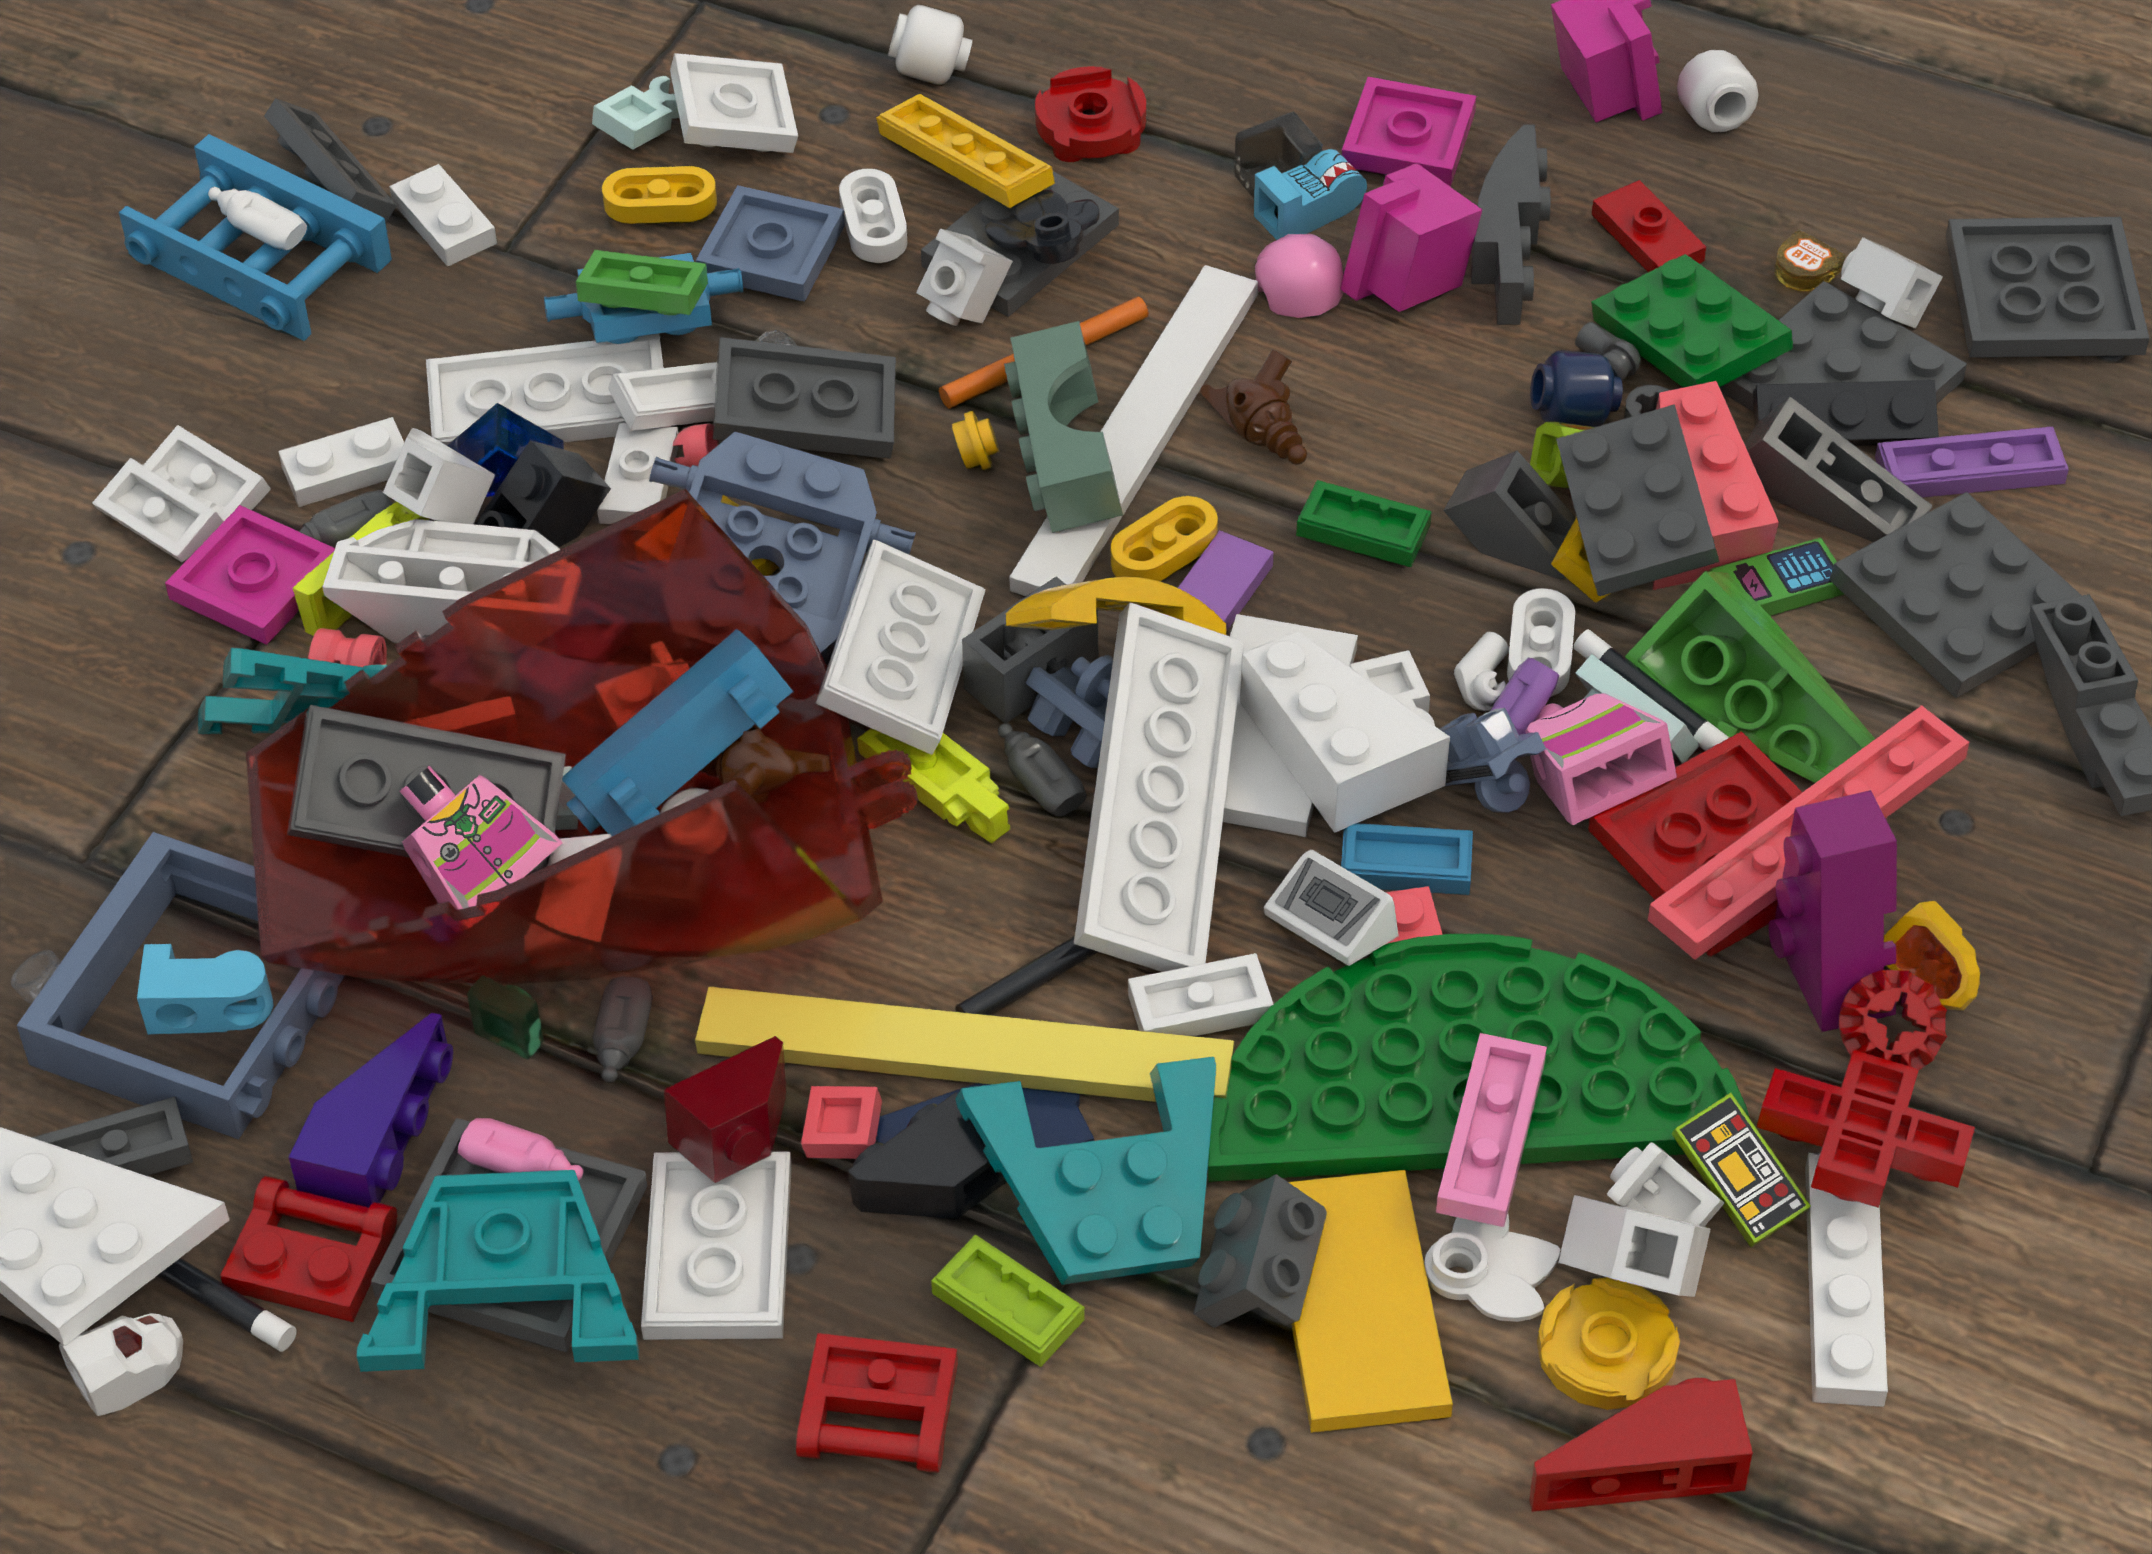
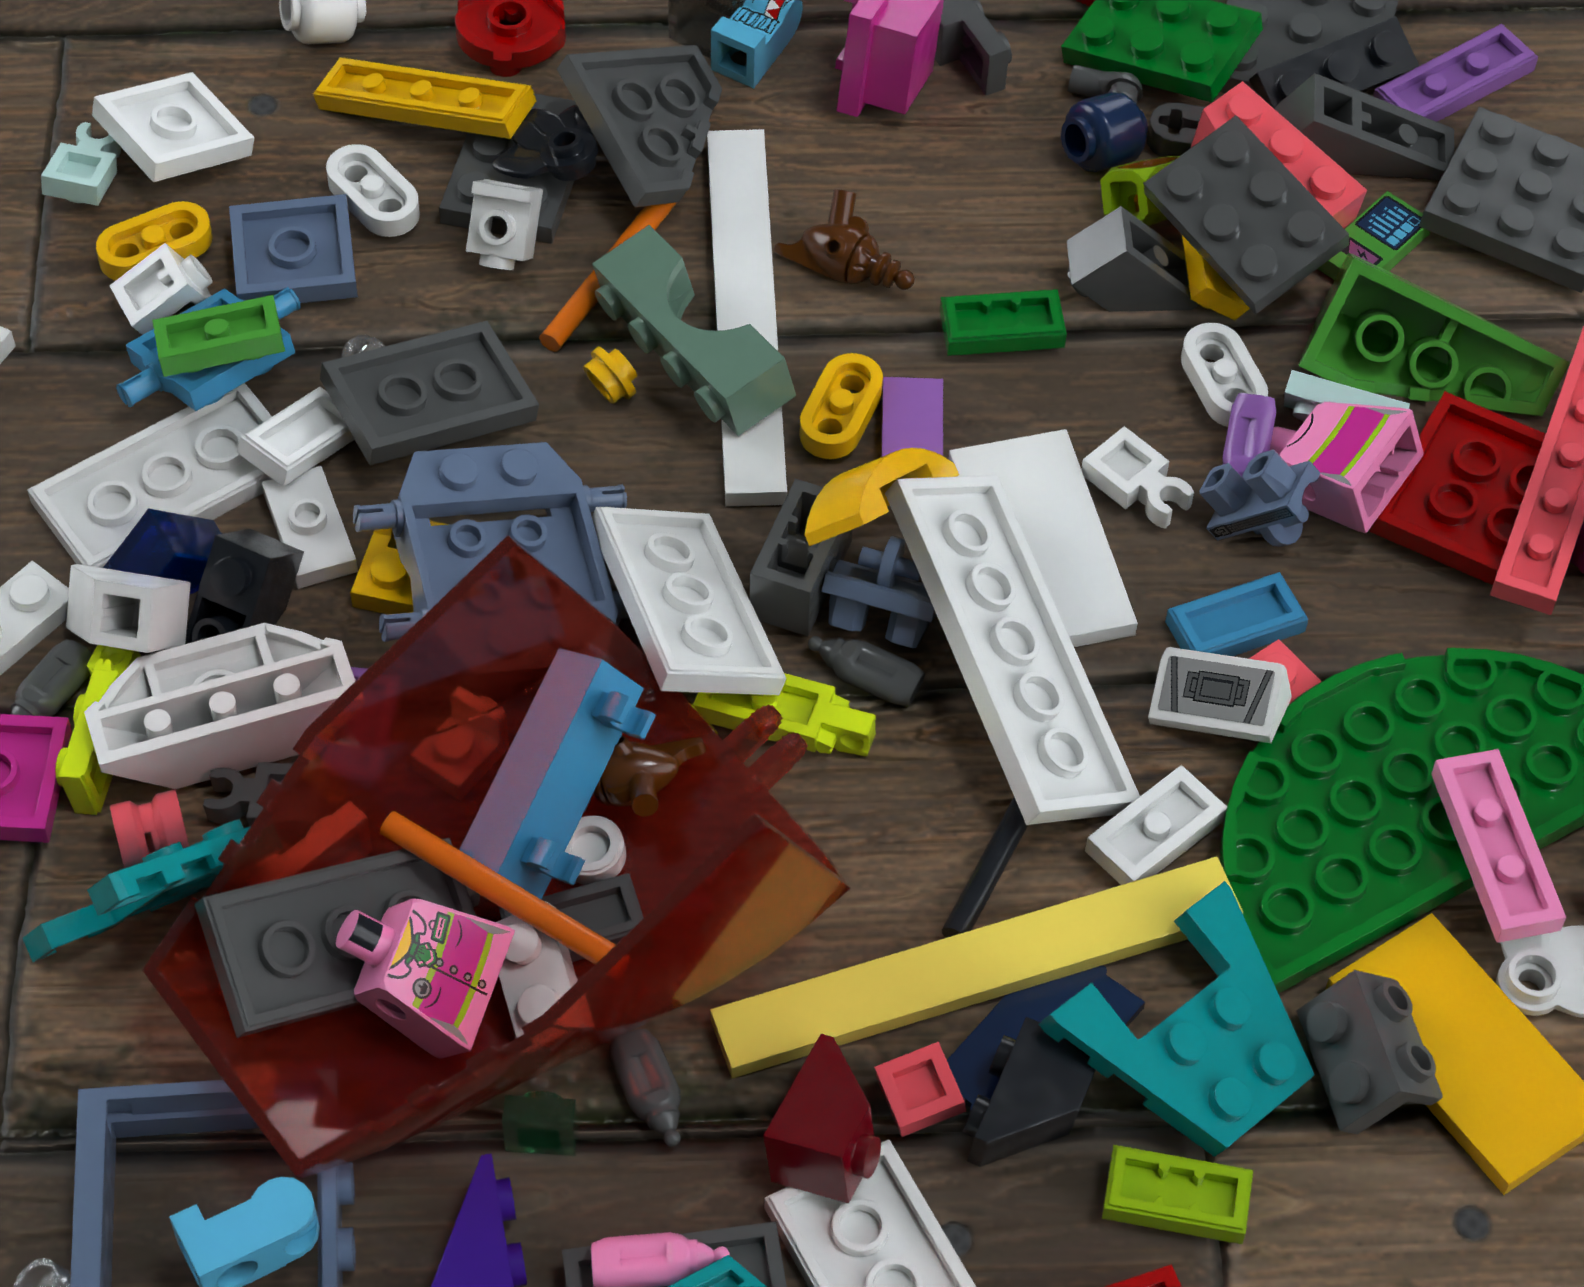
camera: 30 degrees left, 5 degrees up
(552, 777) = (495, 888): none -> orange bar
(642, 230) = (160, 287): none -> white bracket
(696, 443) = (357, 478): coral hinge -> none
(1150, 228) = (646, 114): none -> dark grey plate
(1300, 275) = (795, 110): bright pink hair -> none
(1340, 732) = (1125, 526): white wedge -> none
(1476, 673) = (1185, 428): white arm -> none
(1702, 730) = (1281, 365): black bar -> none

